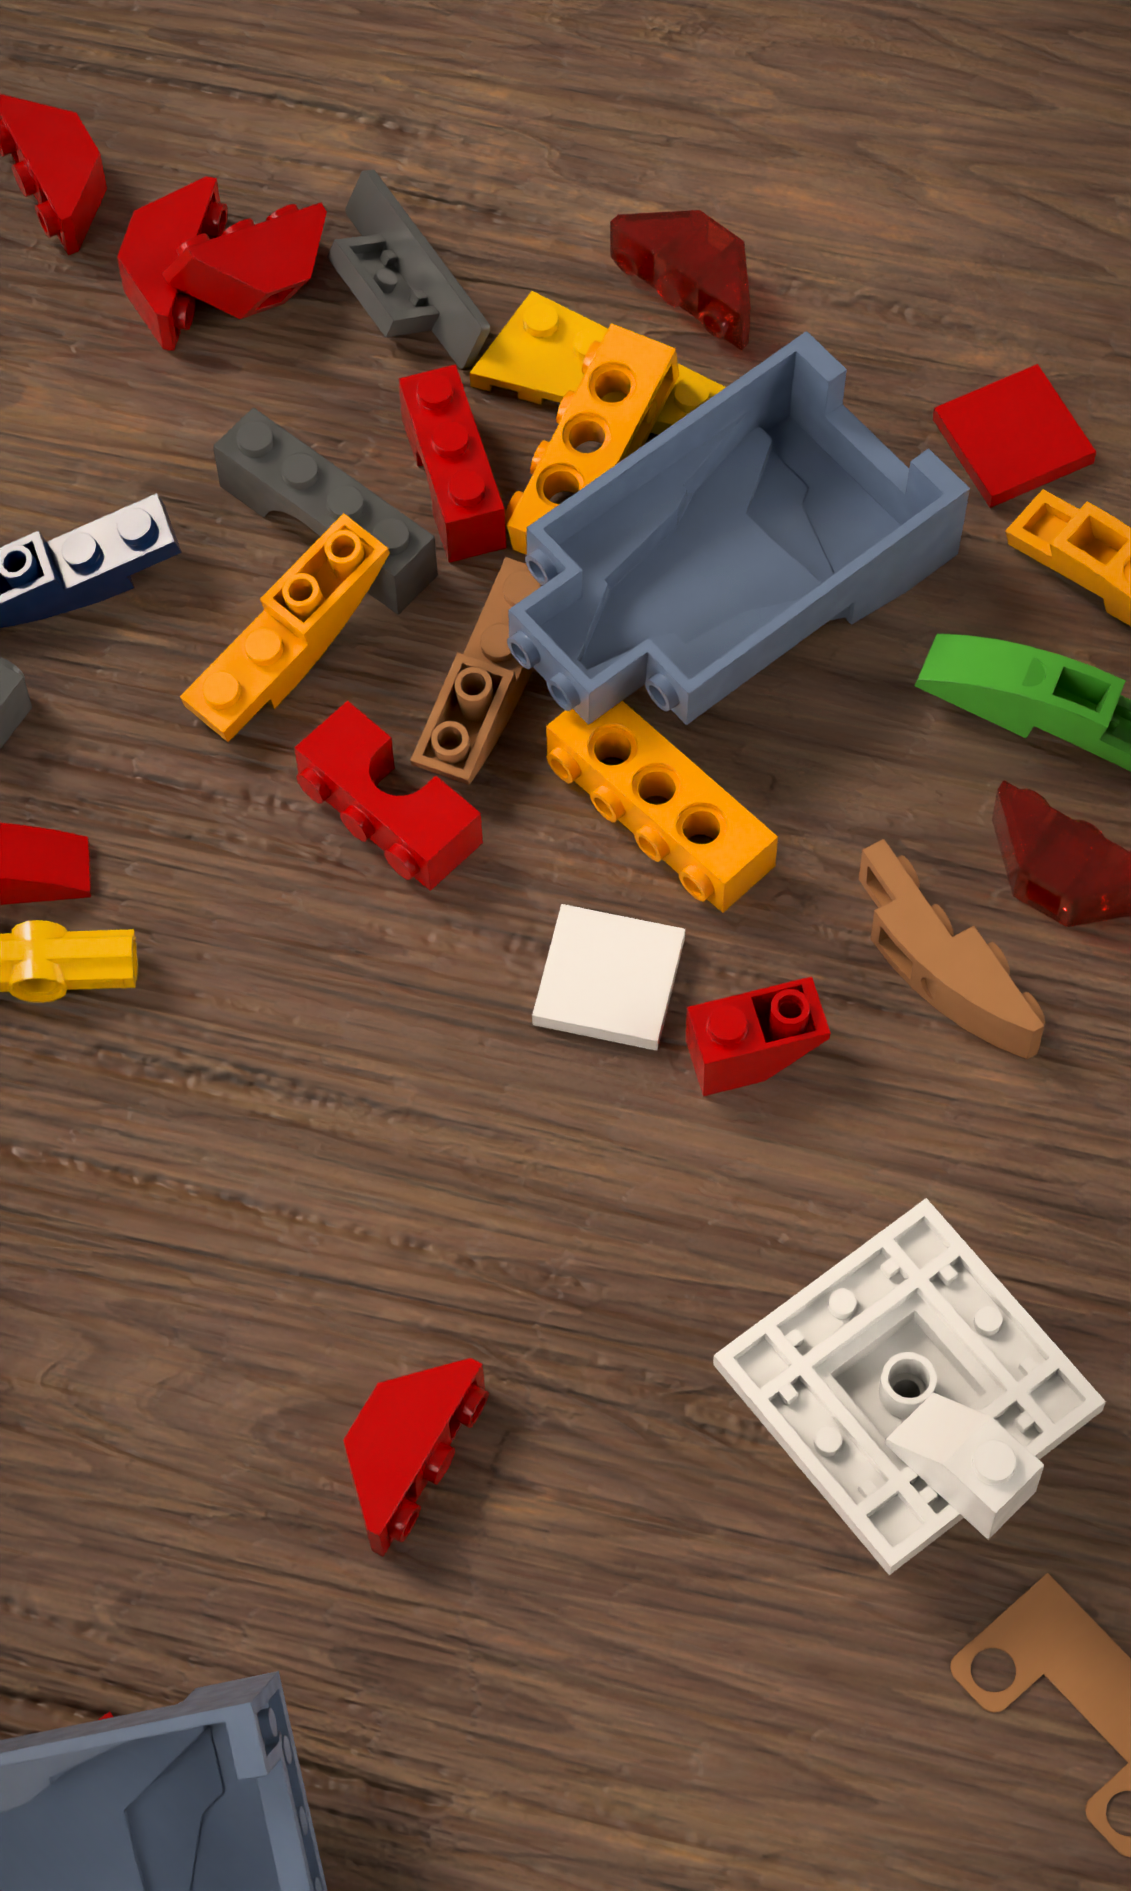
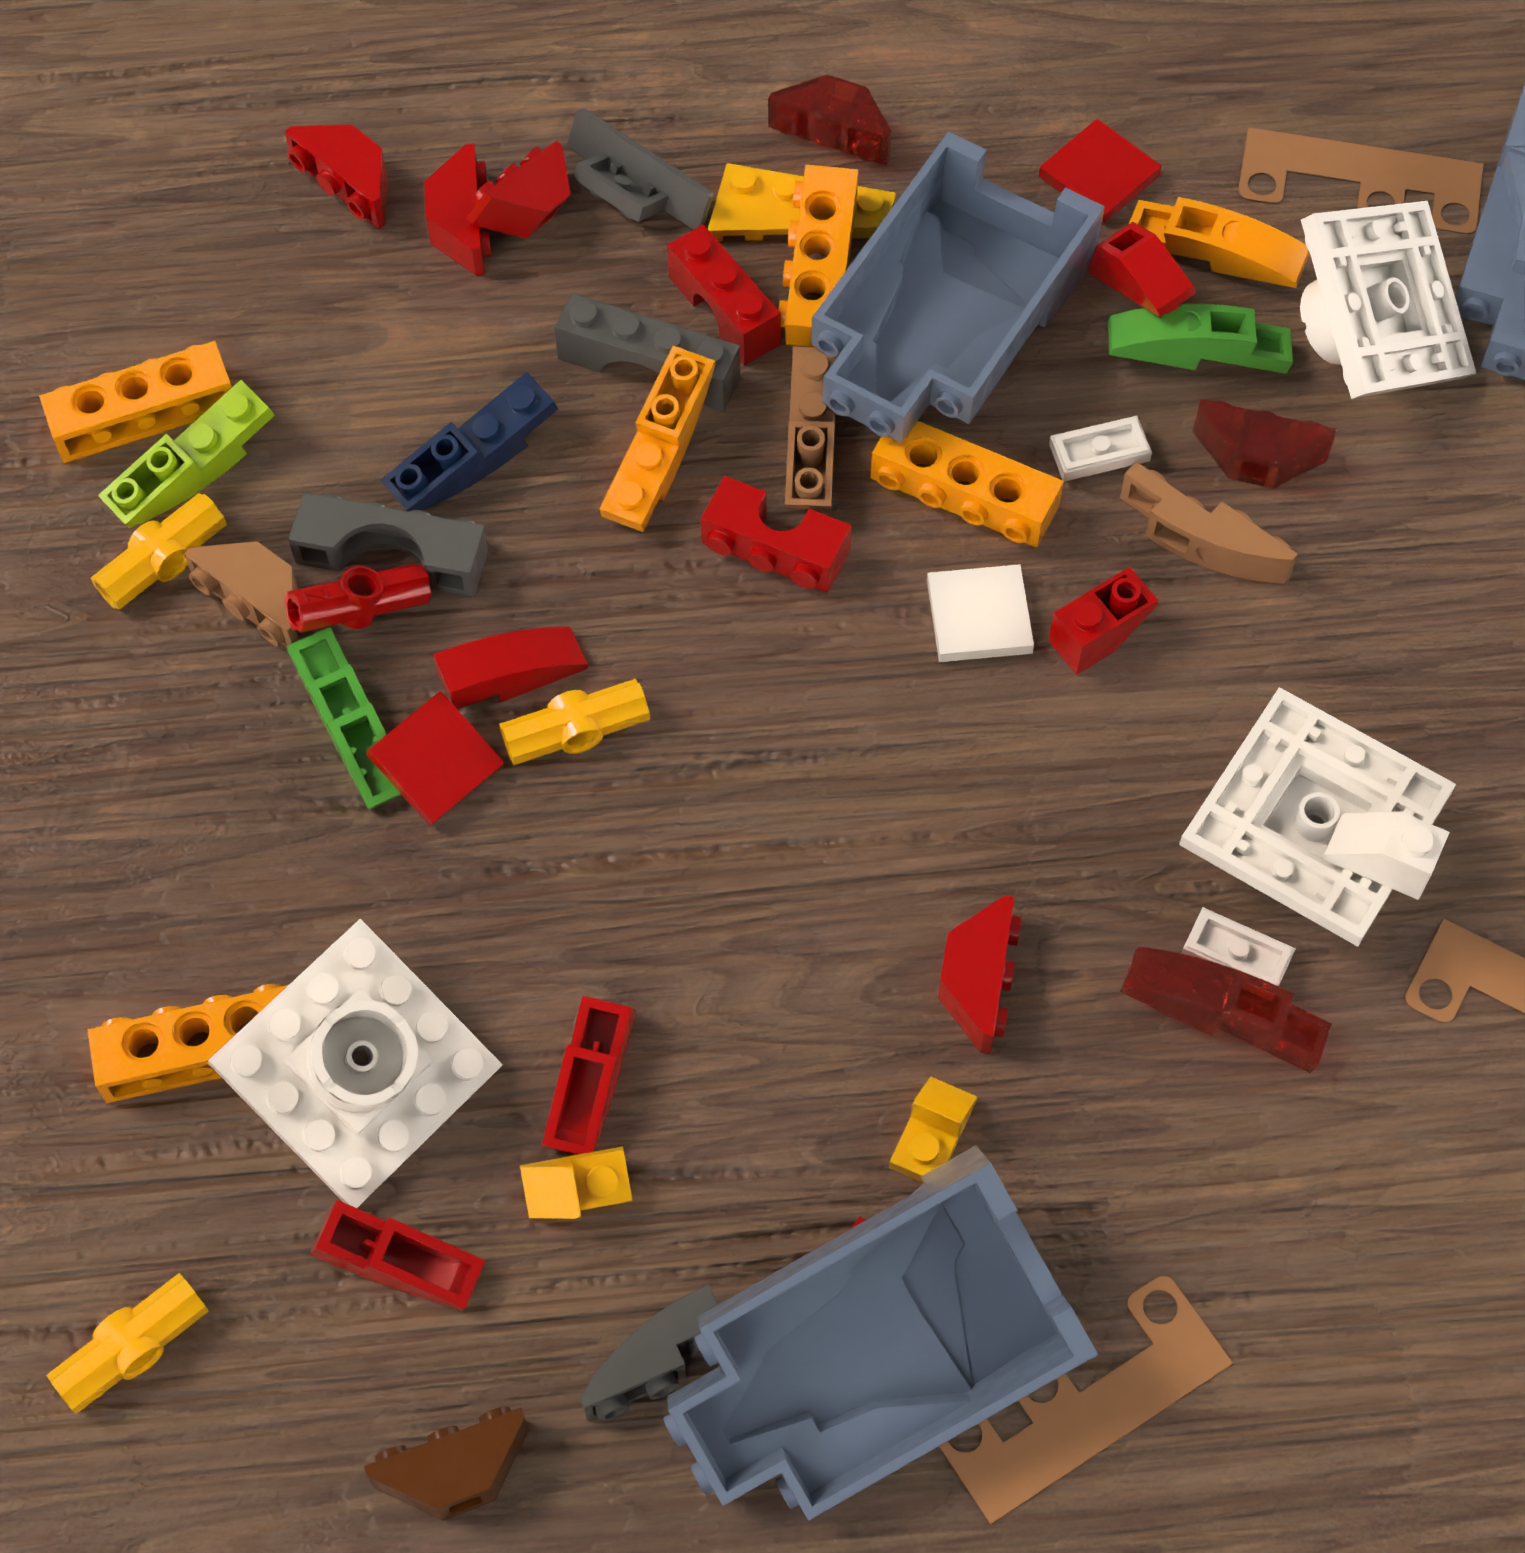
camera: 20 degrees left, 0 degrees up
(269, 1628) = (933, 1129): none -> yellow slope
(704, 1592) = (1229, 1000): none -> clear red slope
(751, 1528) = (1238, 947): none -> white plate
(854, 806) = (1100, 448): none -> white plate
(994, 587) = (1141, 270): none -> red slope

